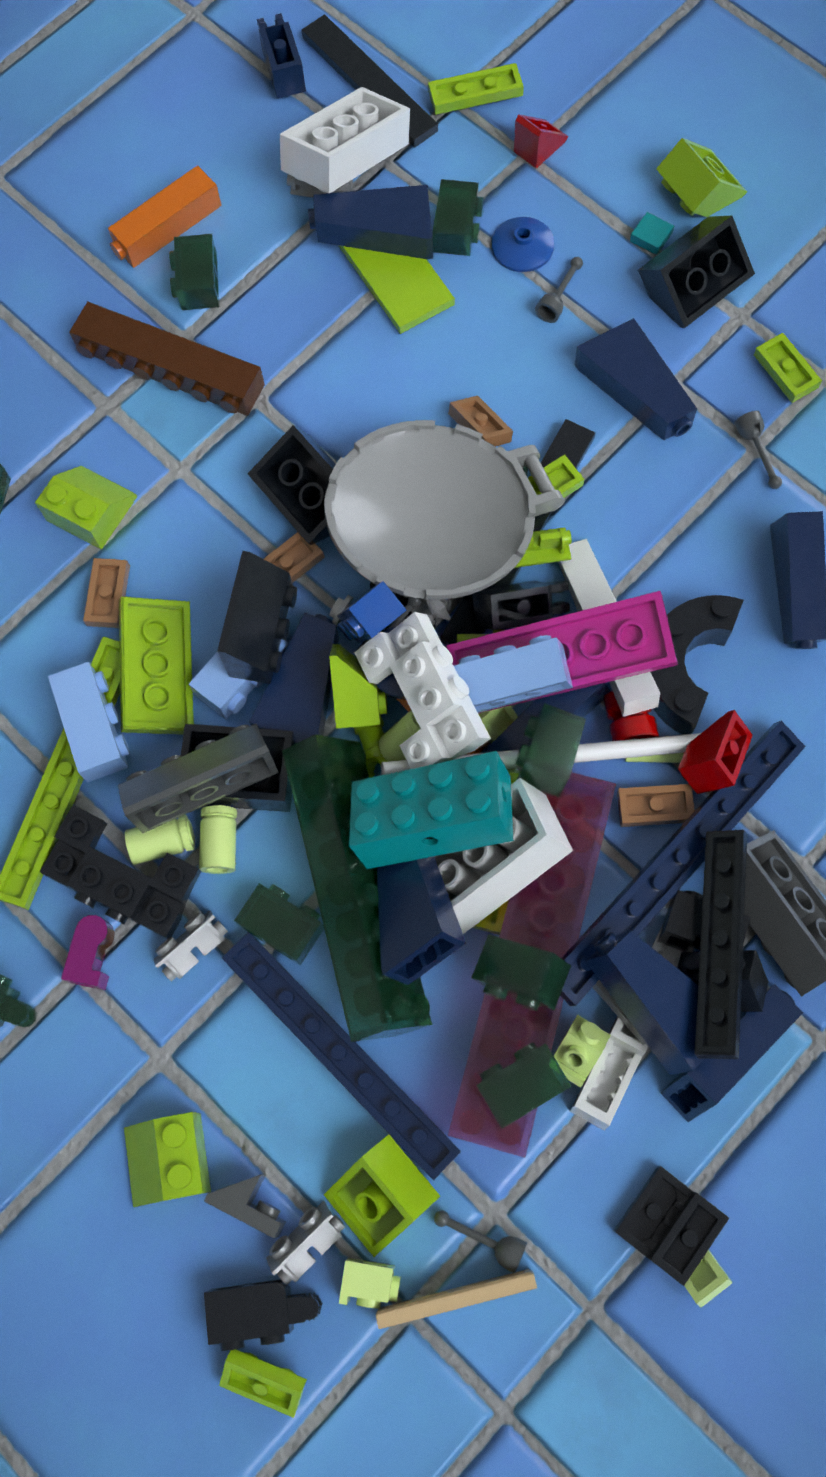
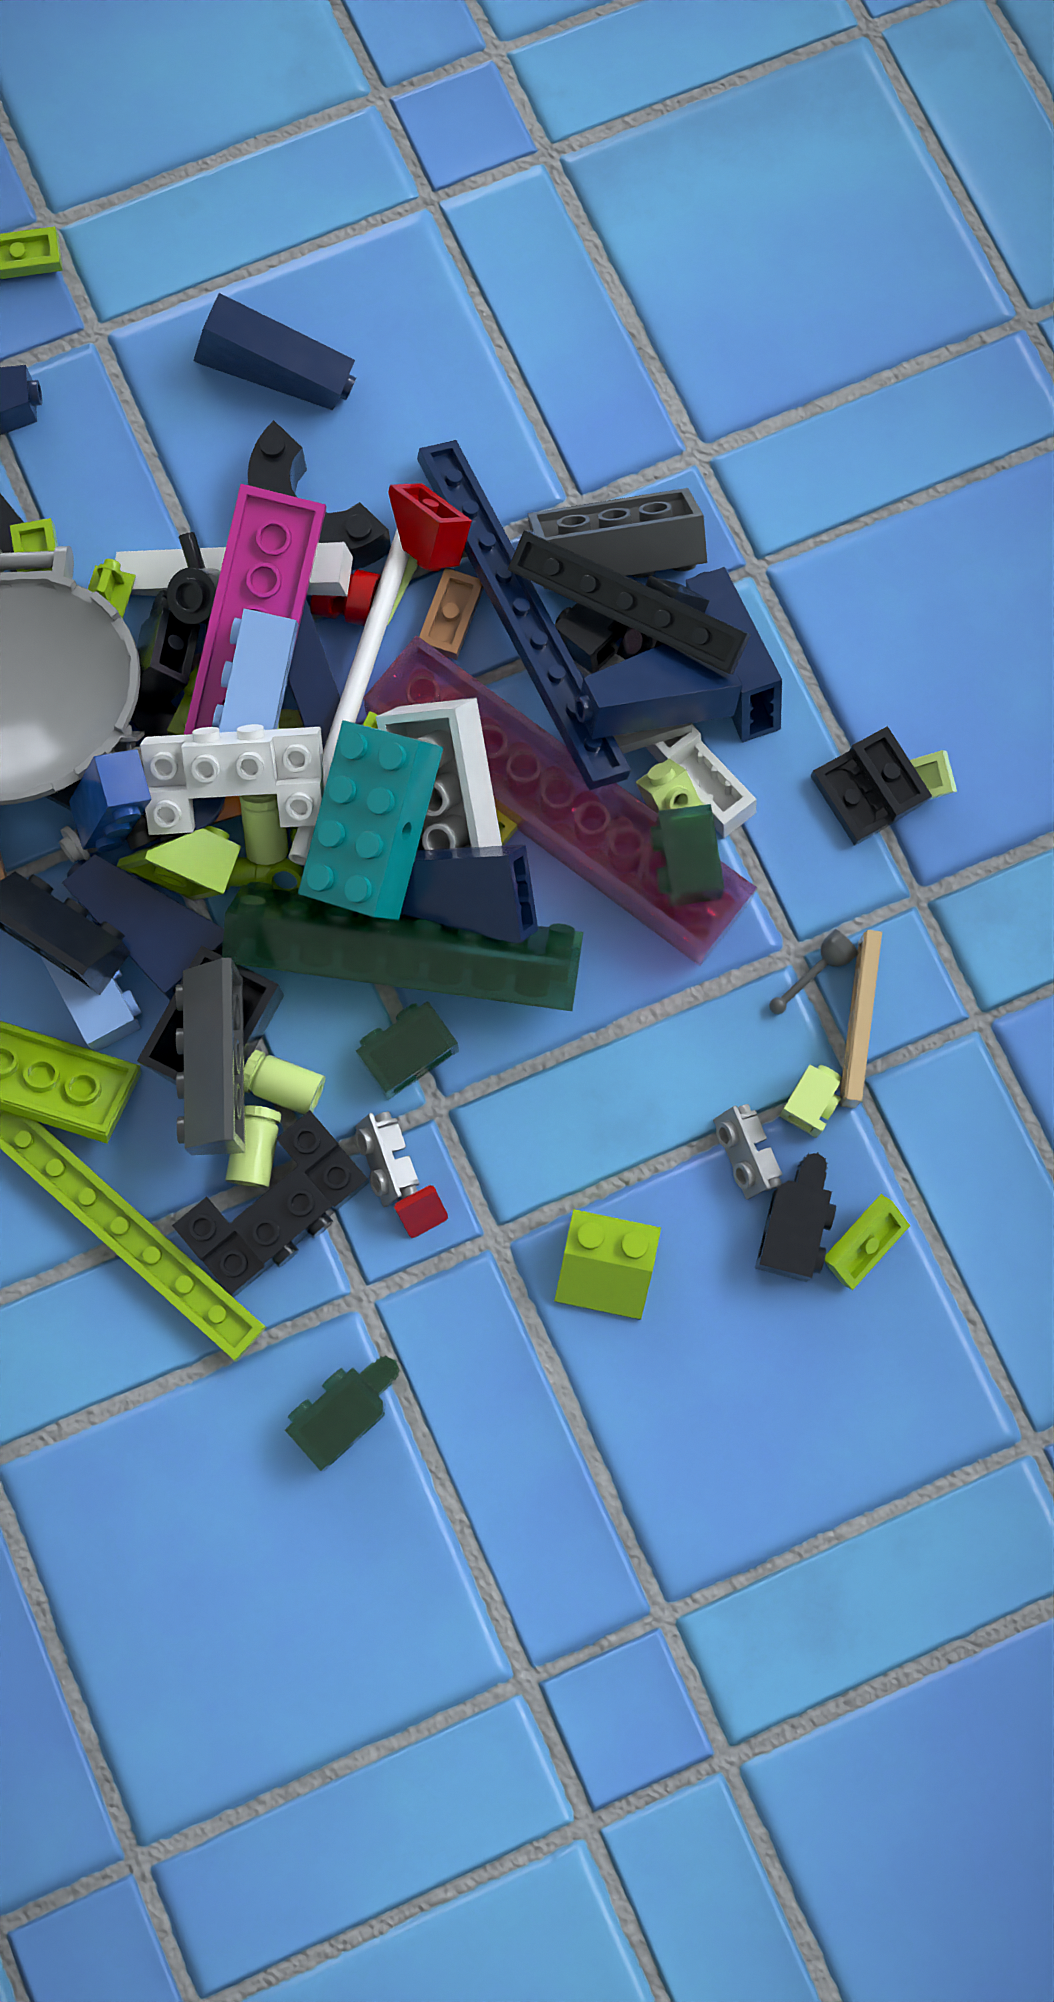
camera: 75 degrees left, 5 degrees up
(87, 953) = (333, 1263): magenta leg -> none
(89, 721) = (79, 1170): light blue brick -> none
(157, 989) = (421, 1211): none -> red slope
(238, 1200) = (680, 1201): dark grey slope -> none
(343, 1058) = (570, 1042): dark blue plate -> none
(381, 1195) = (733, 1053): lime slope -> none
(520, 972) = (577, 806): clear green brick -> none
(550, 749) = (355, 677): clear green brick -> none
(571, 597) = (192, 588): none -> black piece
(751, 427) = (71, 325): dark grey hinge -> none

